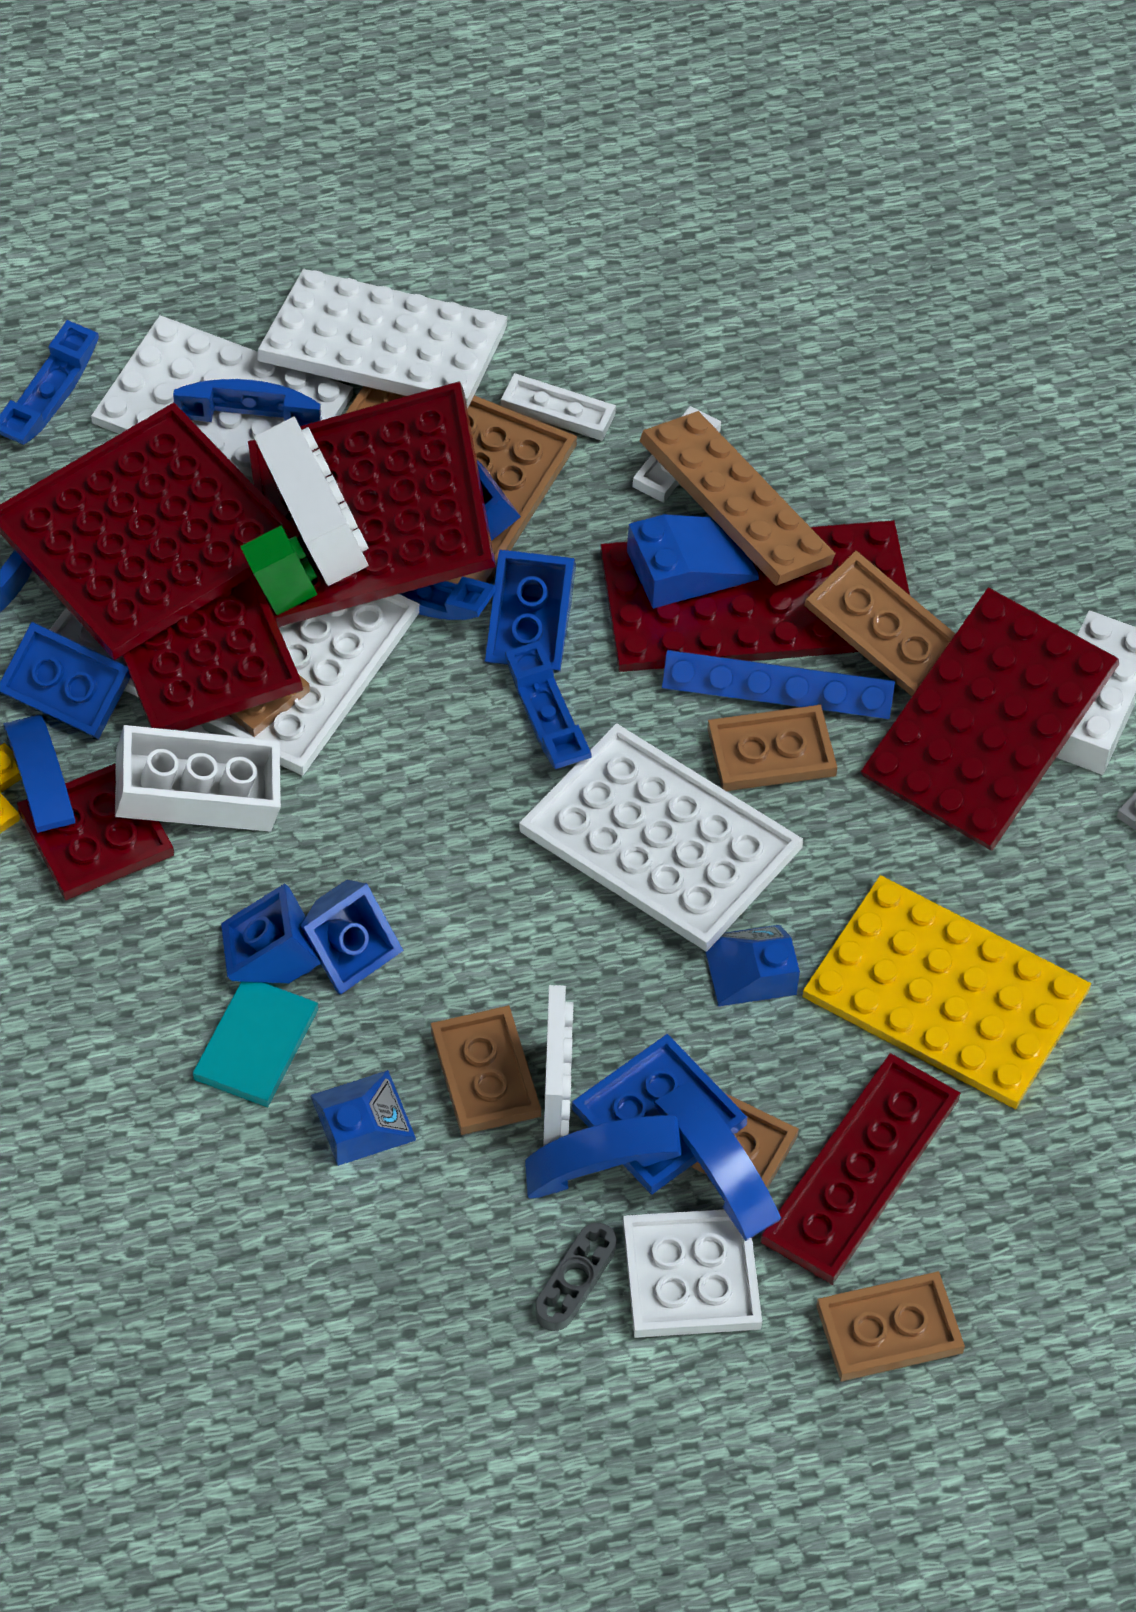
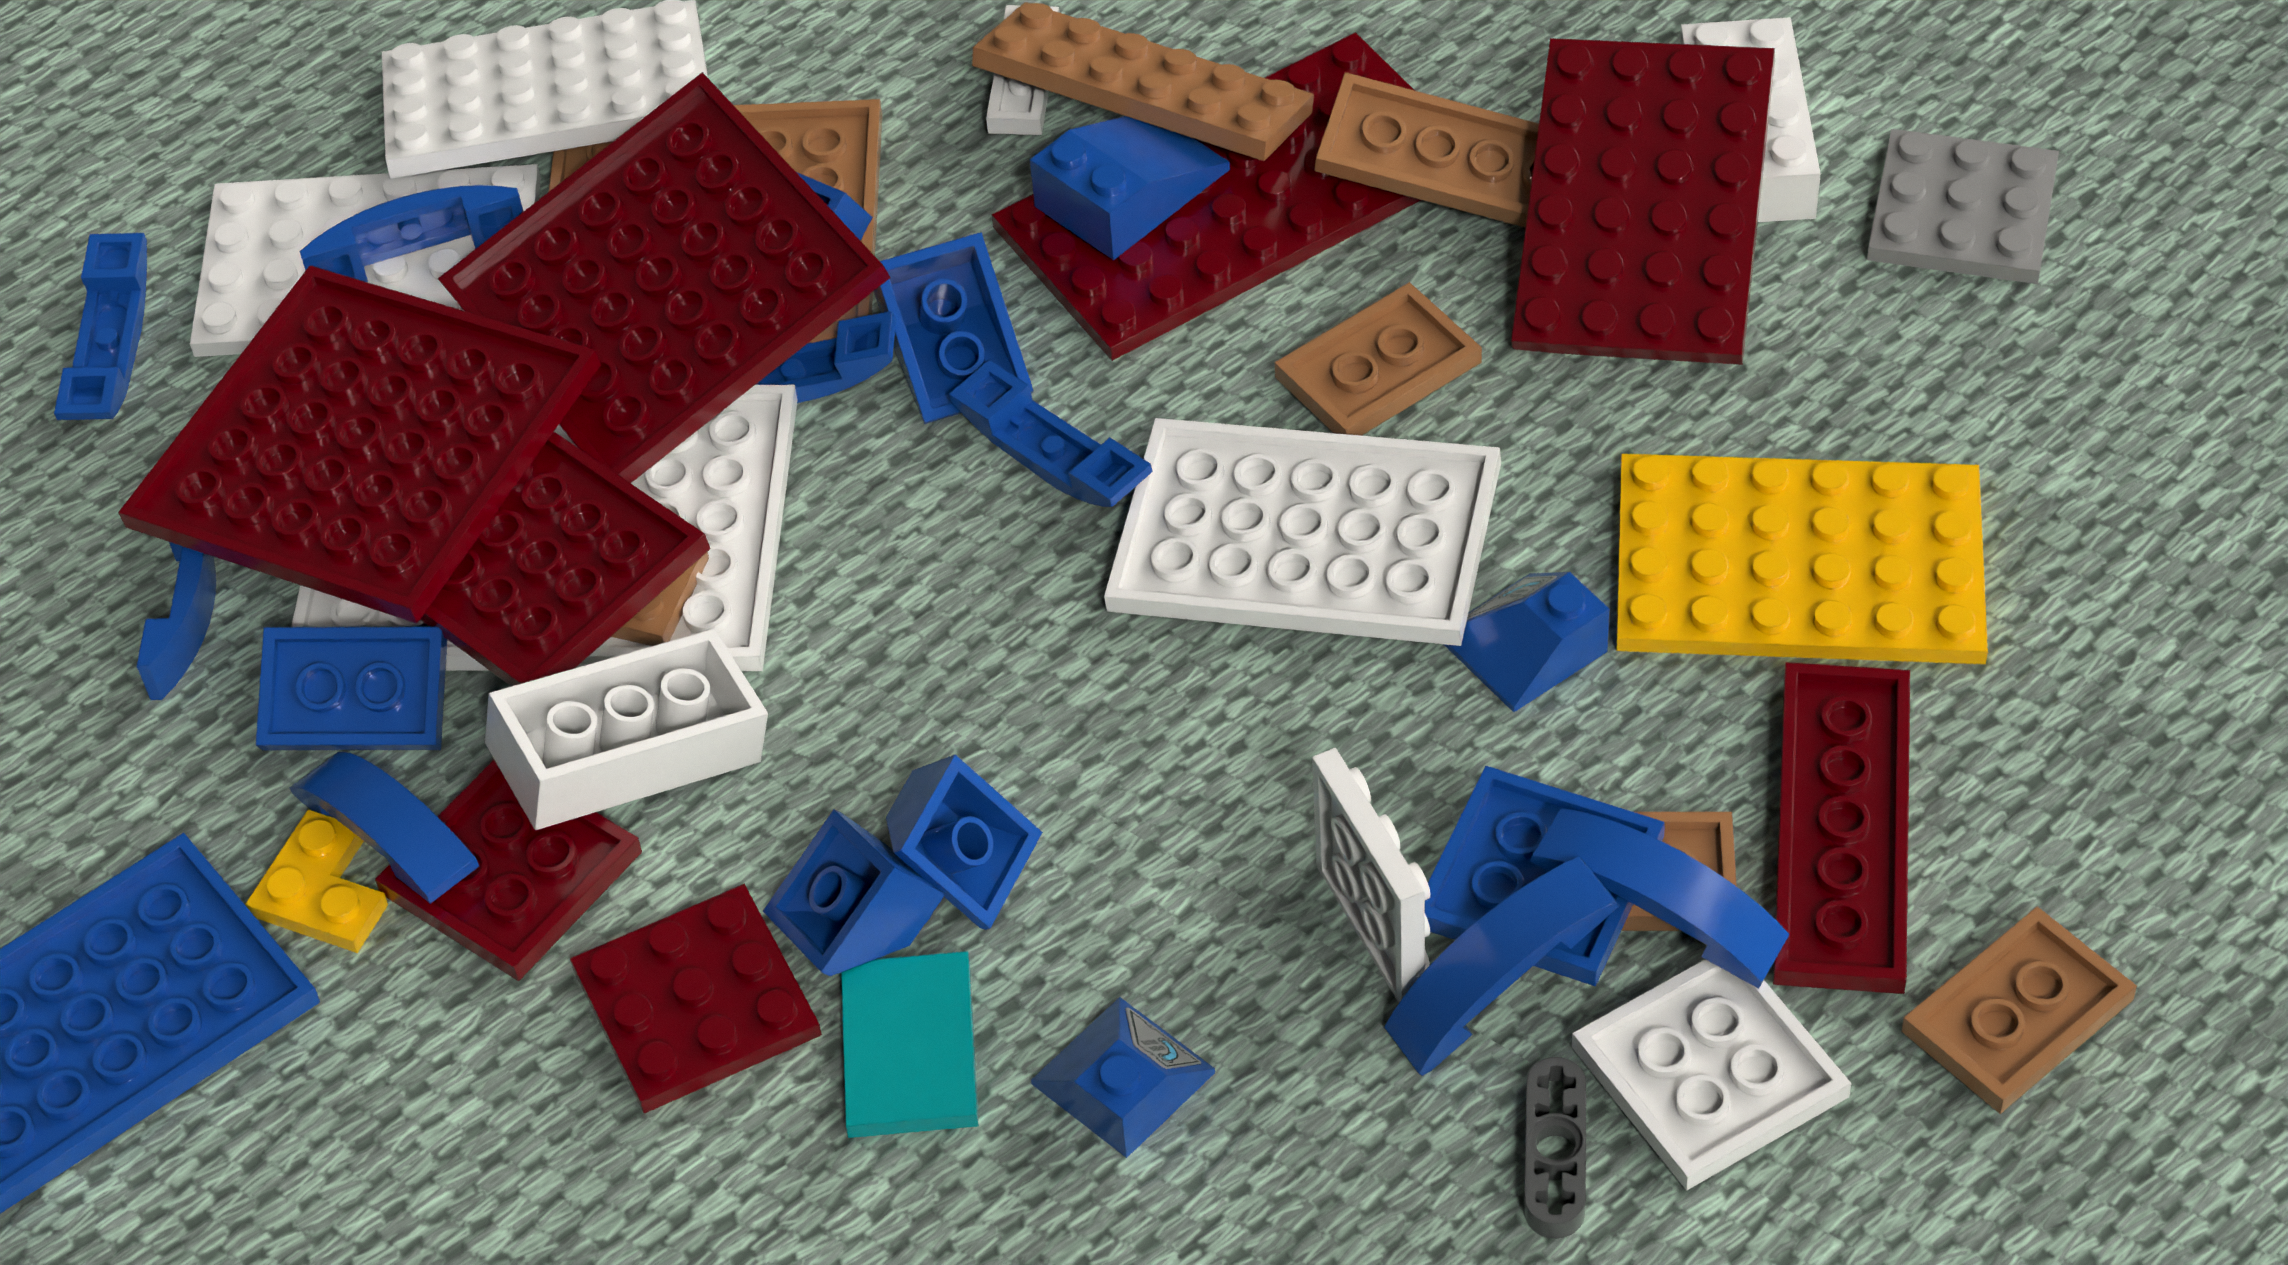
camera: 20 degrees left, 5 degrees down
(154, 957) = (695, 998): none -> dark red plate
(279, 569) = (592, 402): green brick -> none
(313, 500) = (588, 296): white brick -> none
(485, 1070) = (1258, 933): medium nougat plate -> none
(558, 406) = (832, 75): white plate -> none
(778, 684) = (1334, 282): blue plate -> none

